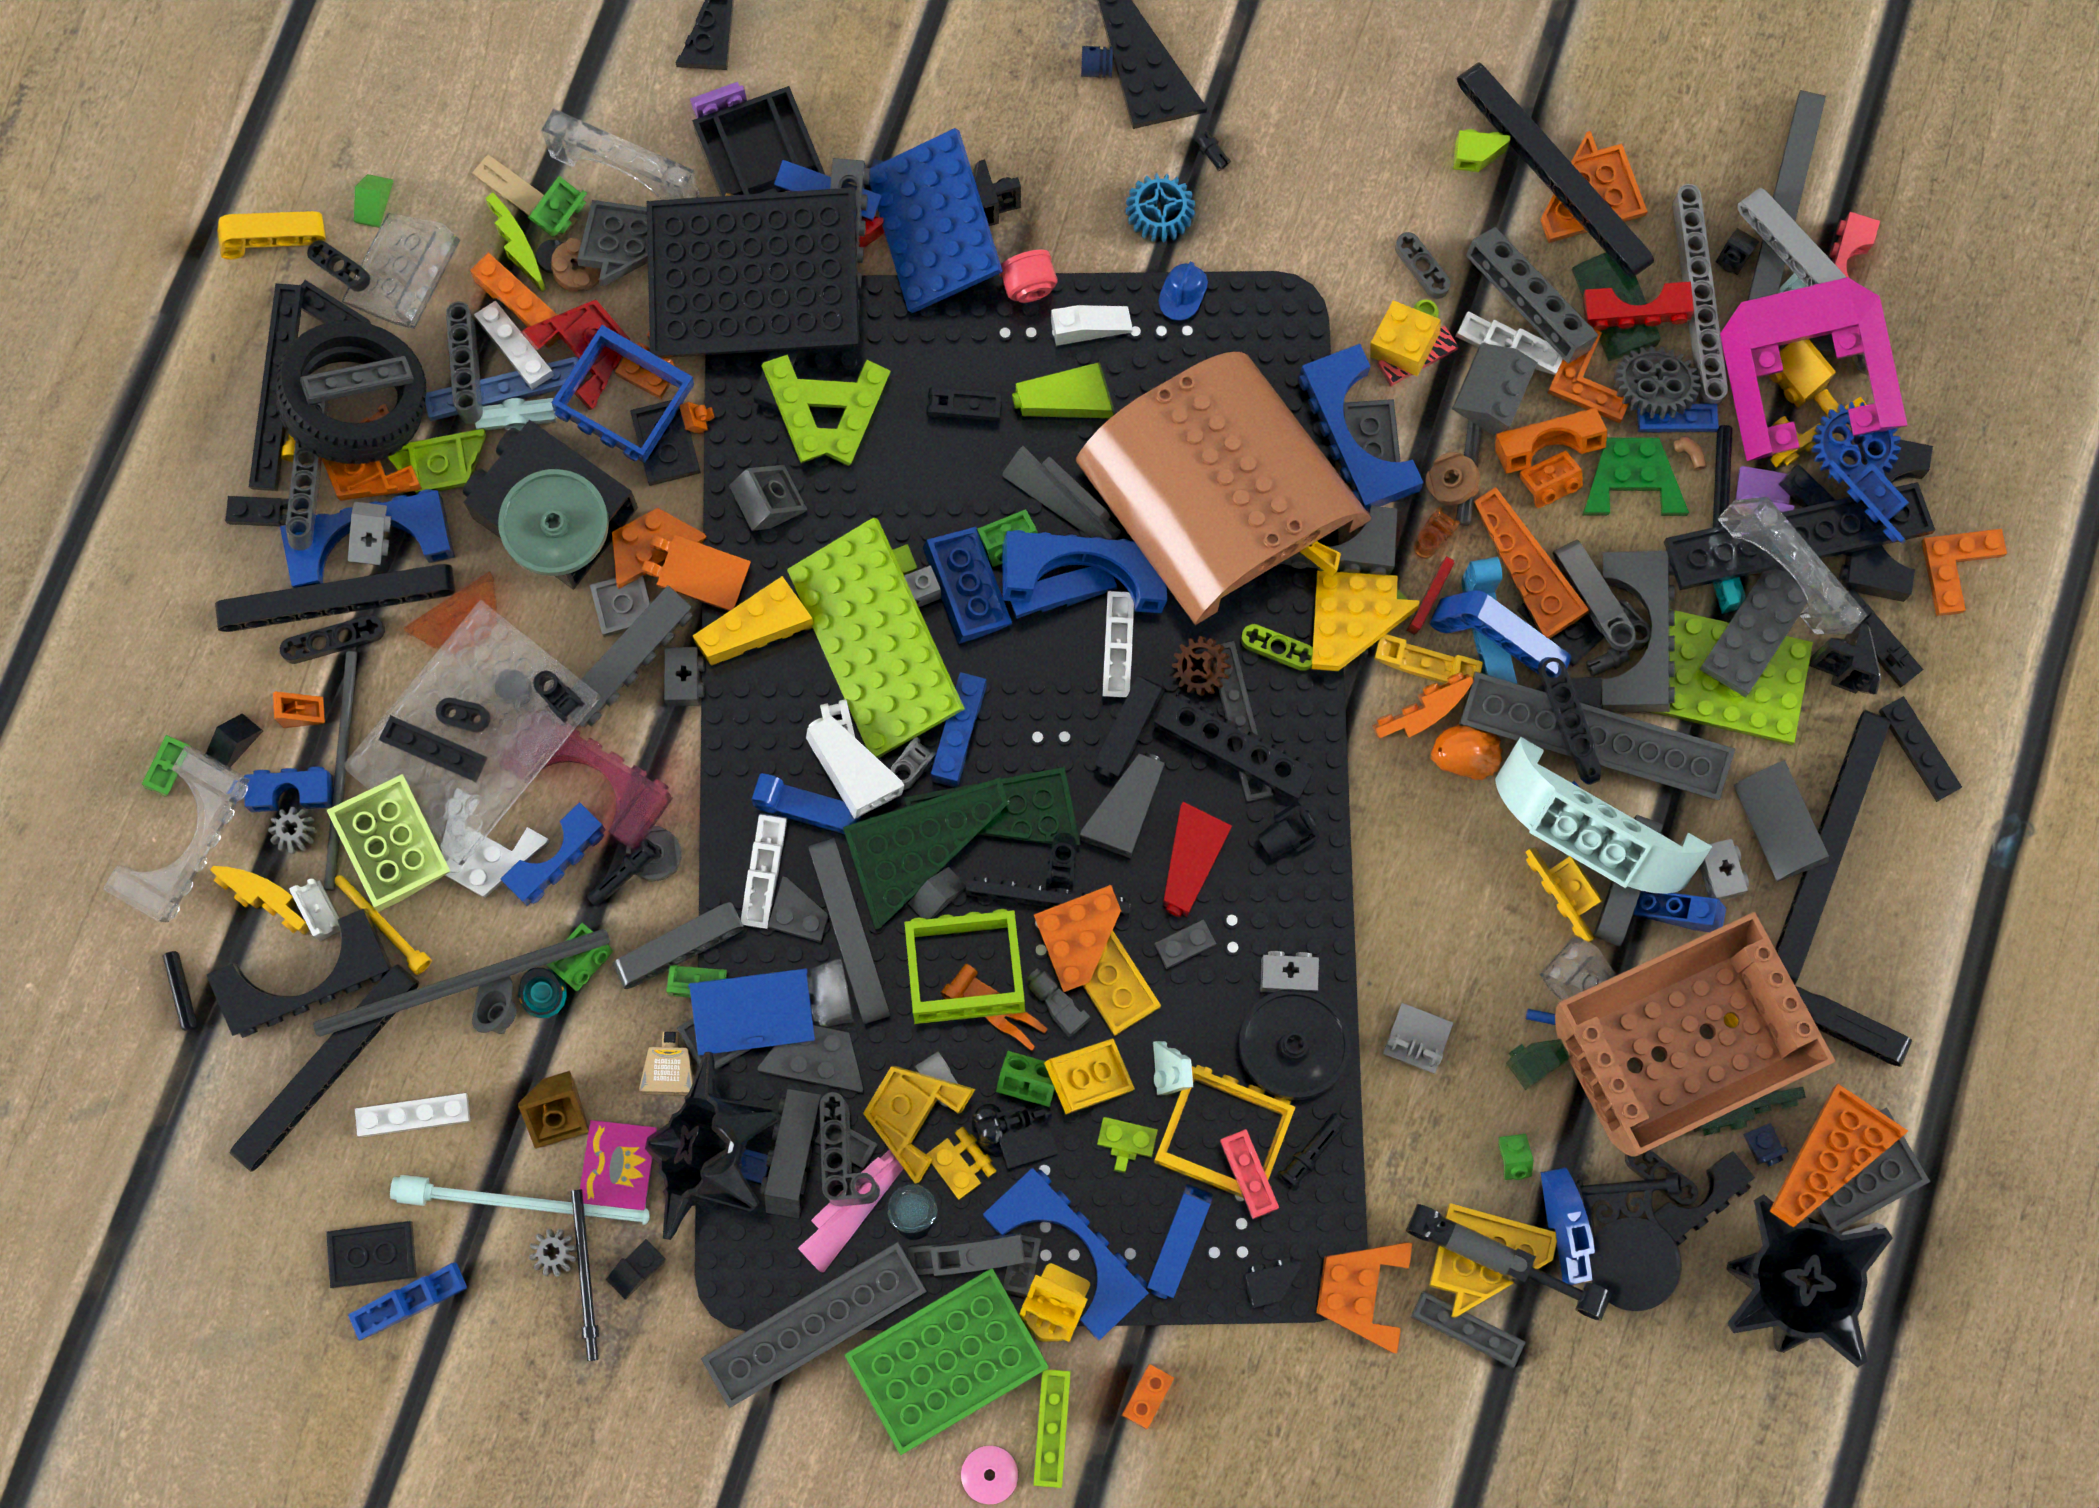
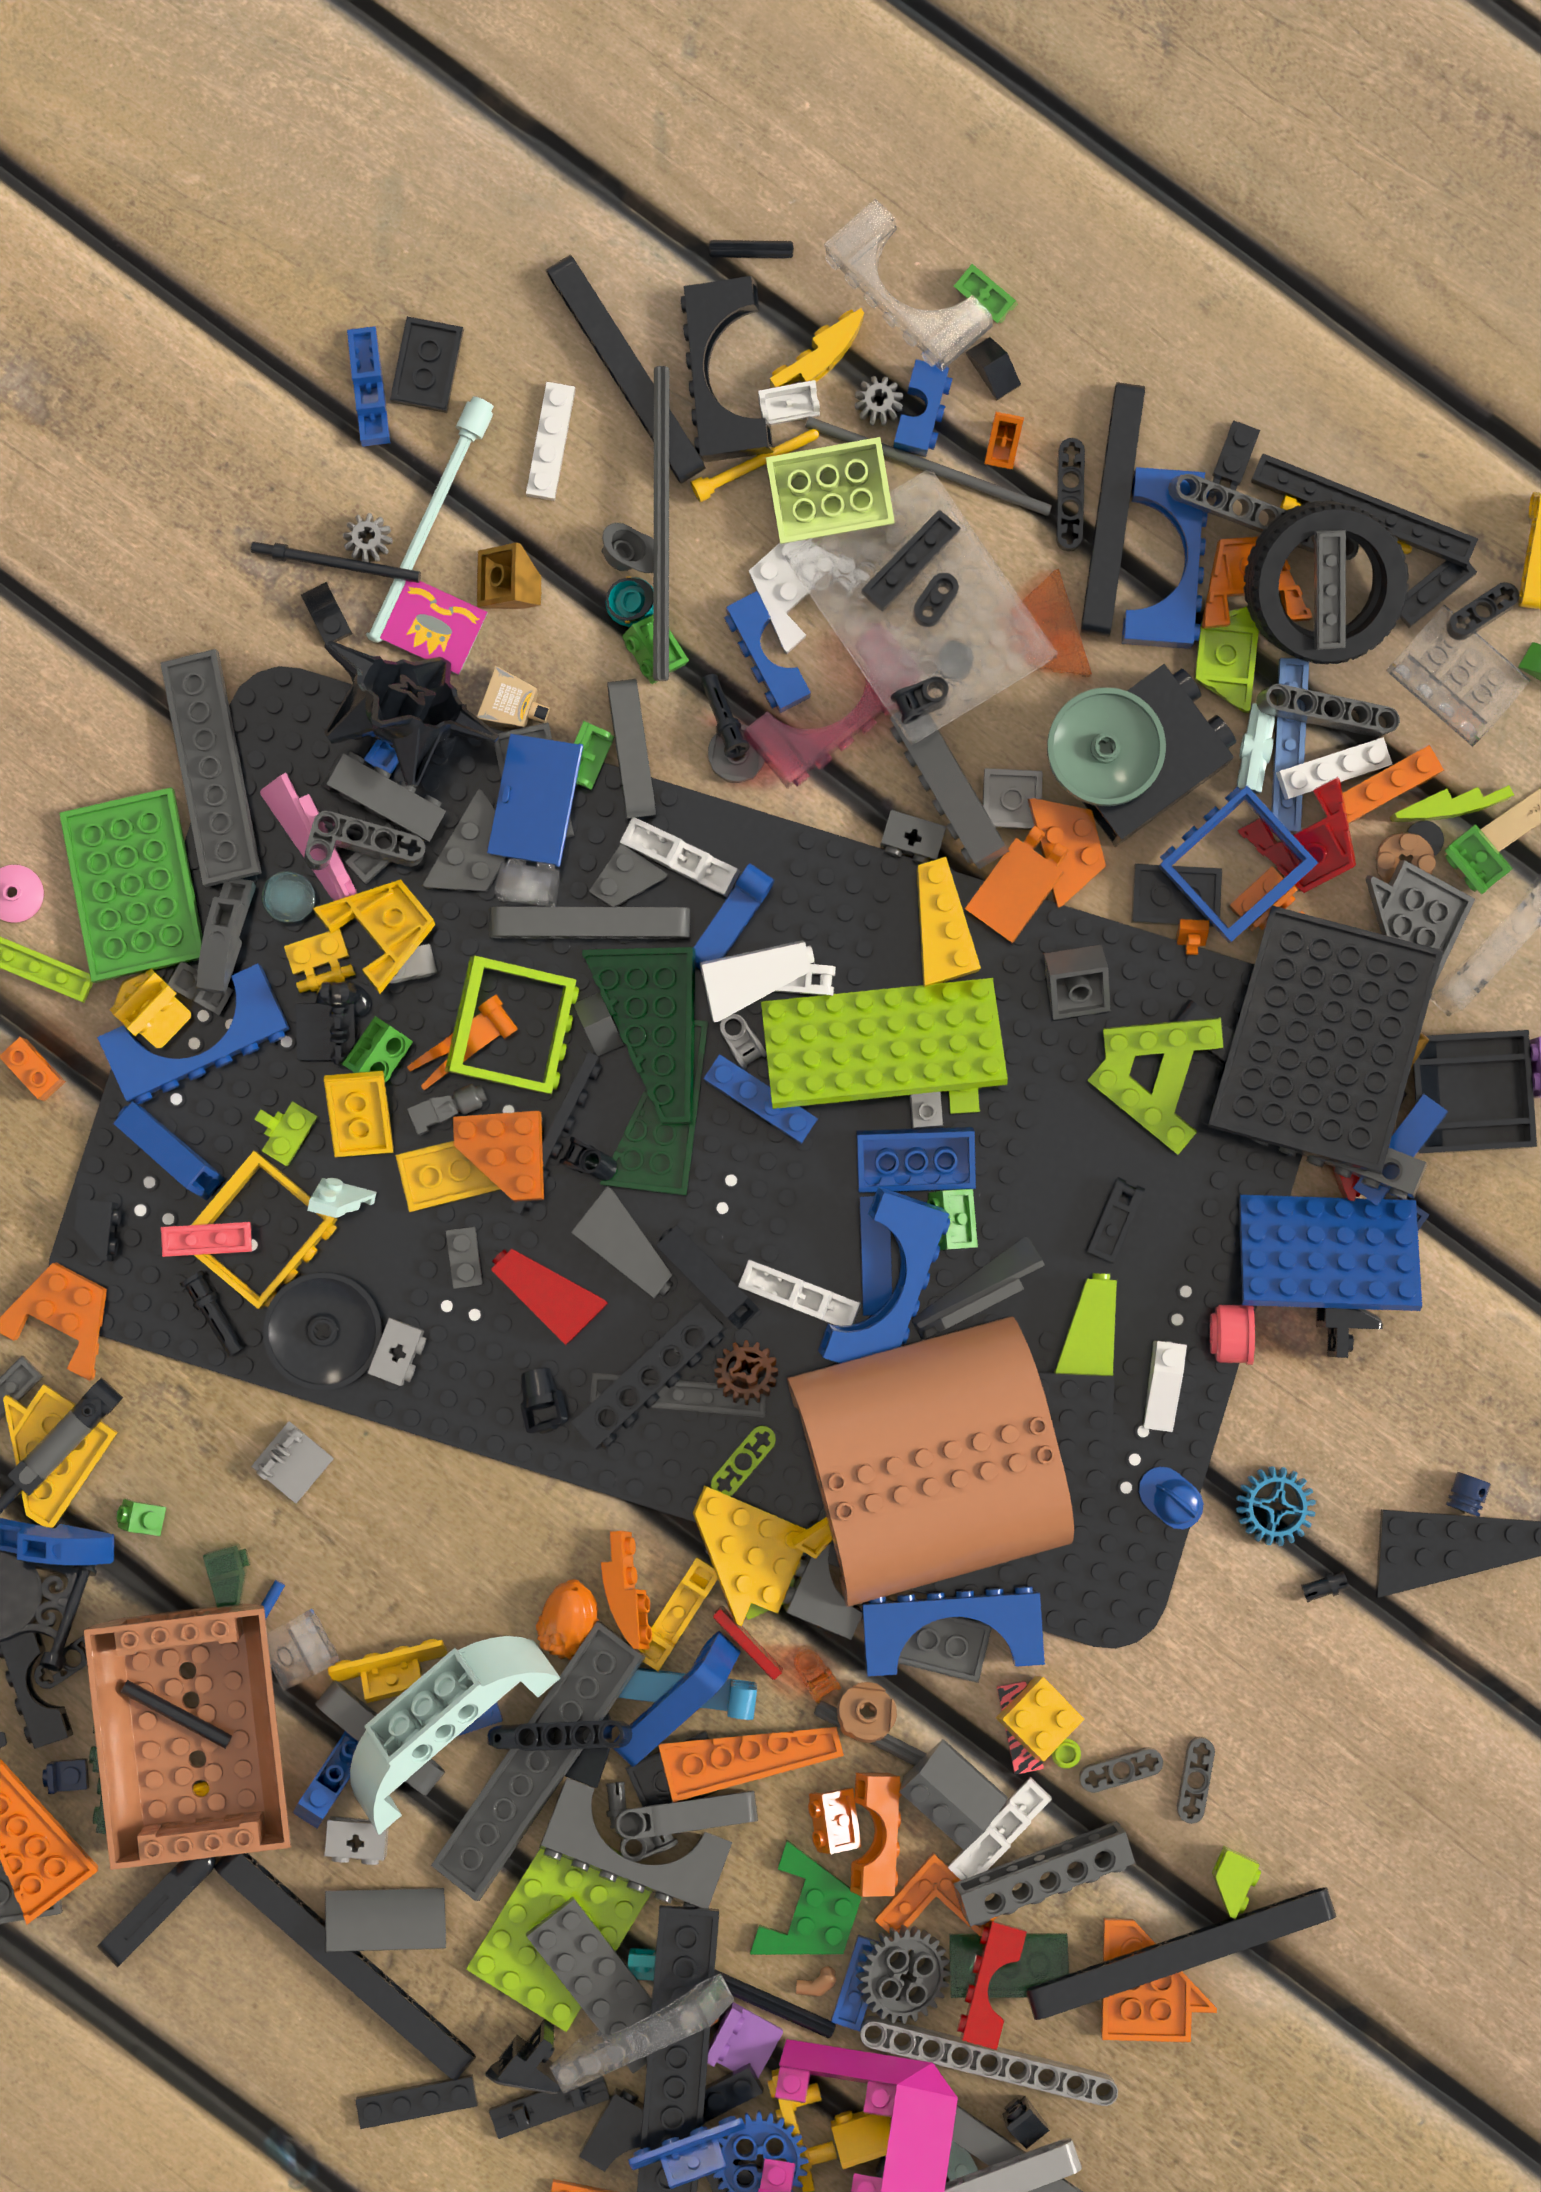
camera: 105 degrees right, 10 degrees up
(368, 519) = (1168, 559): light grey brick -> none
(1389, 199) = (1184, 1800): none -> dark grey beam
(1677, 1059) = (176, 1714): none -> black piece

